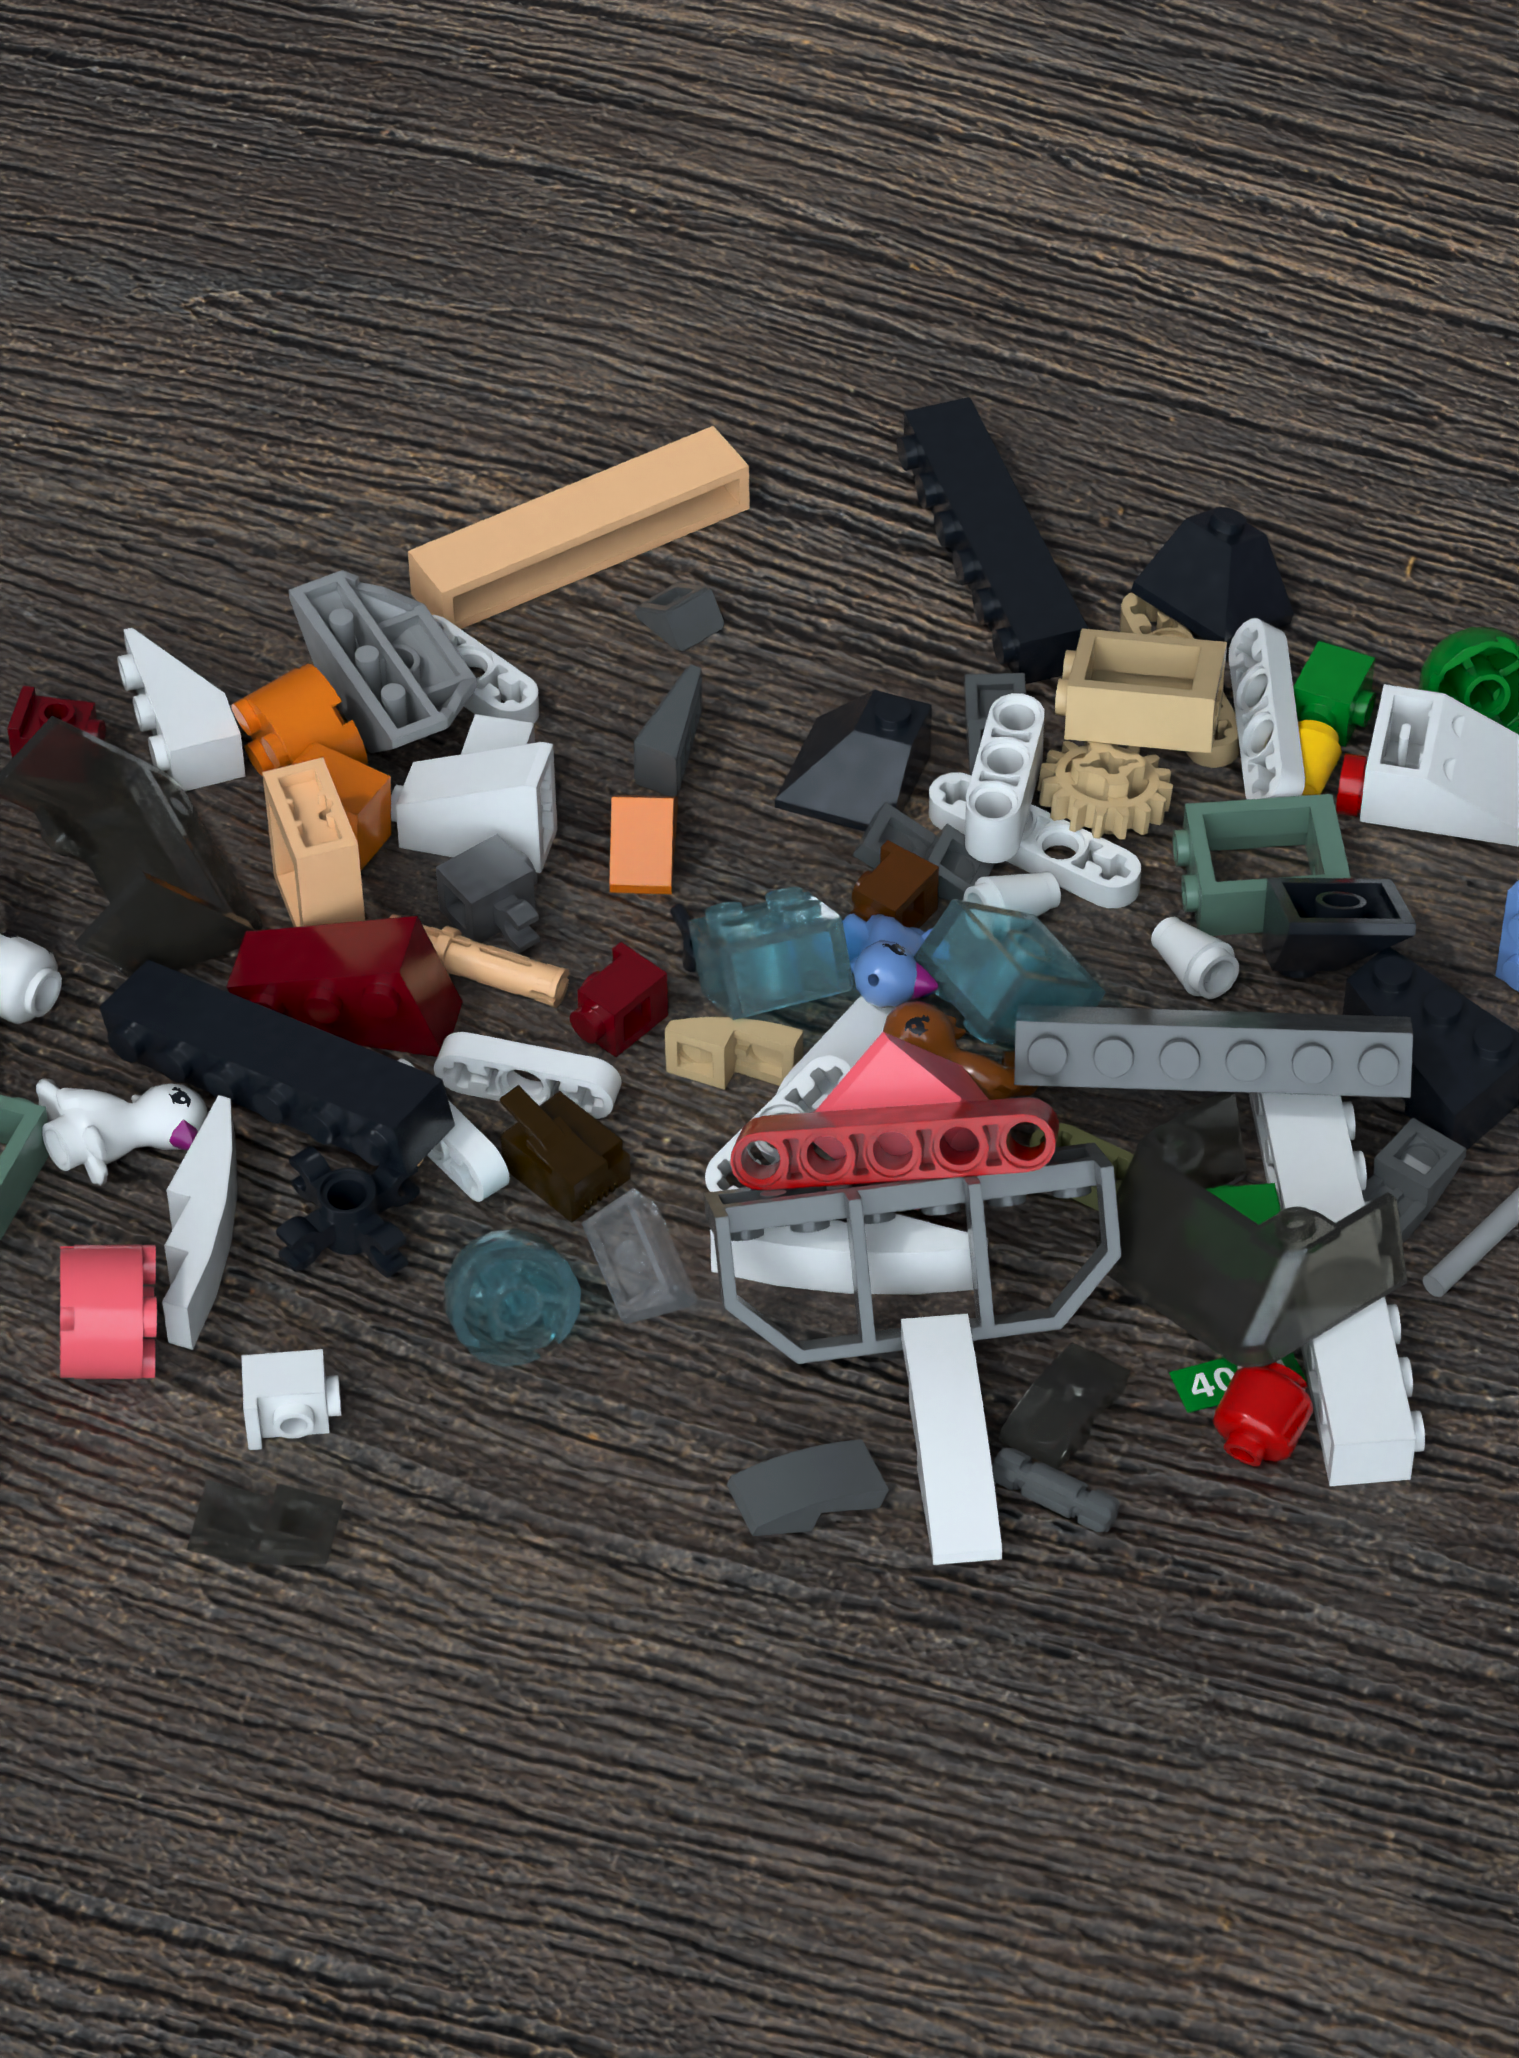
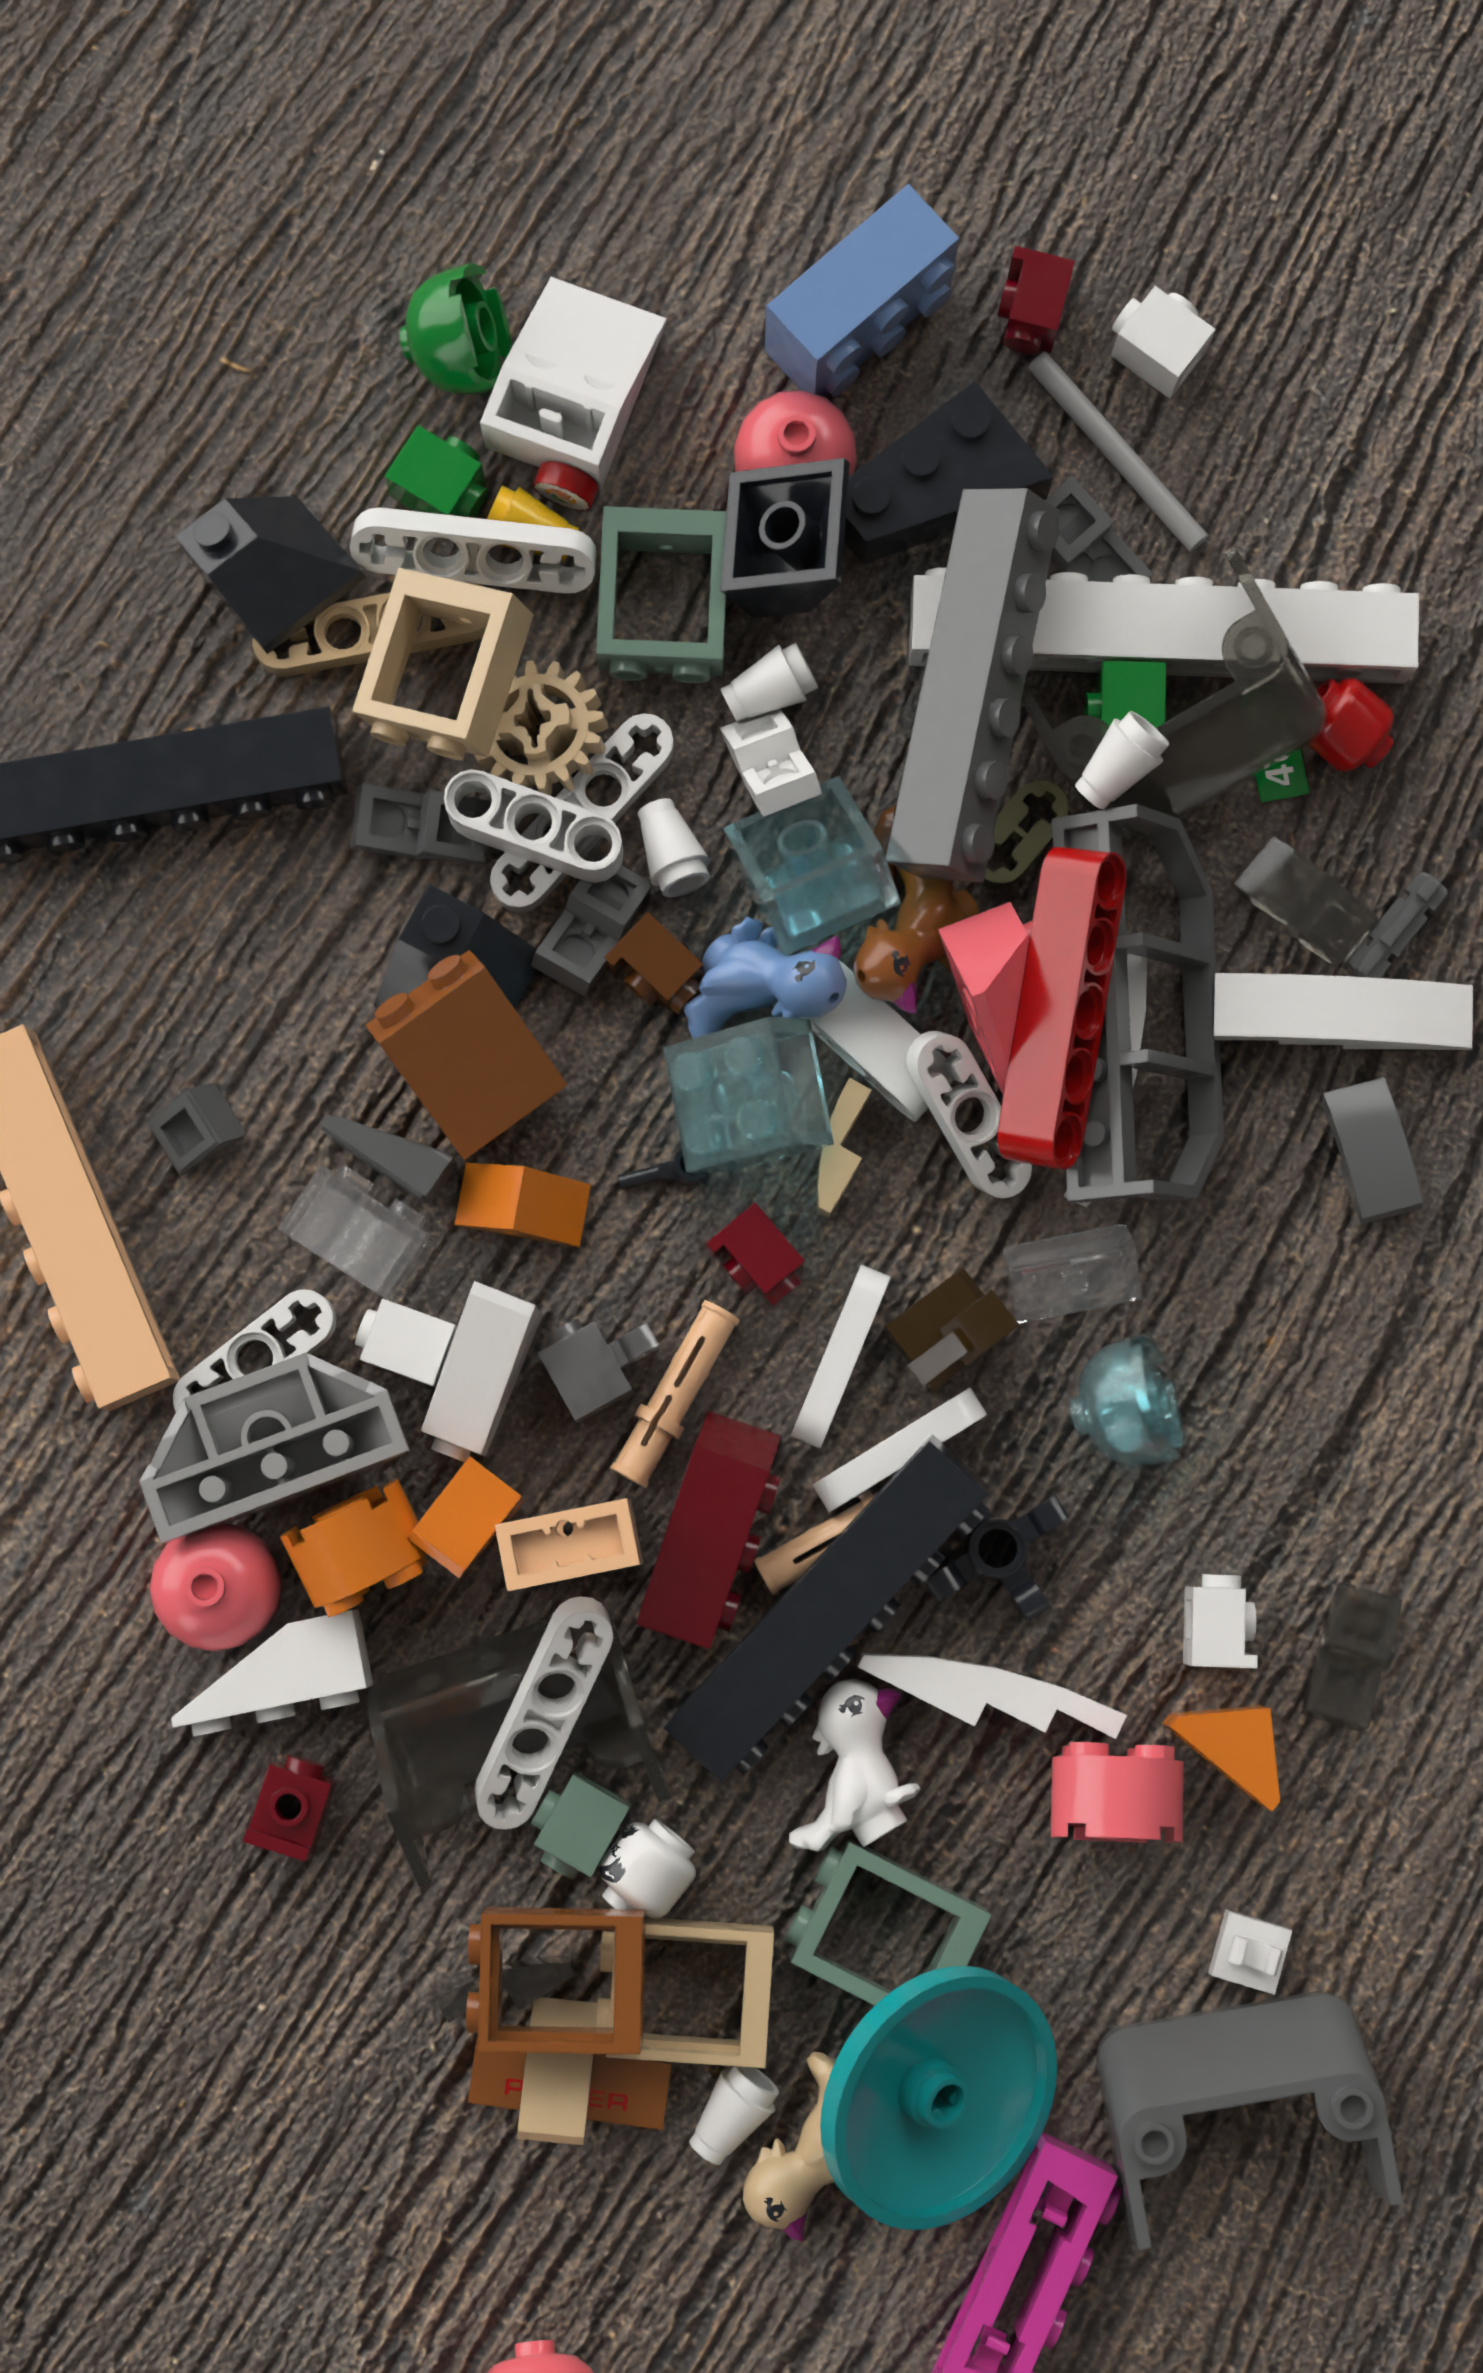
camera: 85 degrees left, 35 degrees up
(54, 921) = (578, 1825): none -> sand green brick
(157, 1426) = (1236, 1744): none -> orange slope
(160, 860) = (549, 1715): none -> white beam
(251, 650) = (216, 1587): none -> coral cylinder
(597, 717) = (357, 1232): none -> clear brick
(776, 750) = (465, 1053): none -> dark orange brick
(1114, 953) = (771, 761): none -> white slope
(1160, 1151) = (1122, 759): none -> white cone
(1451, 941) = (793, 430): none -> coral cylinder

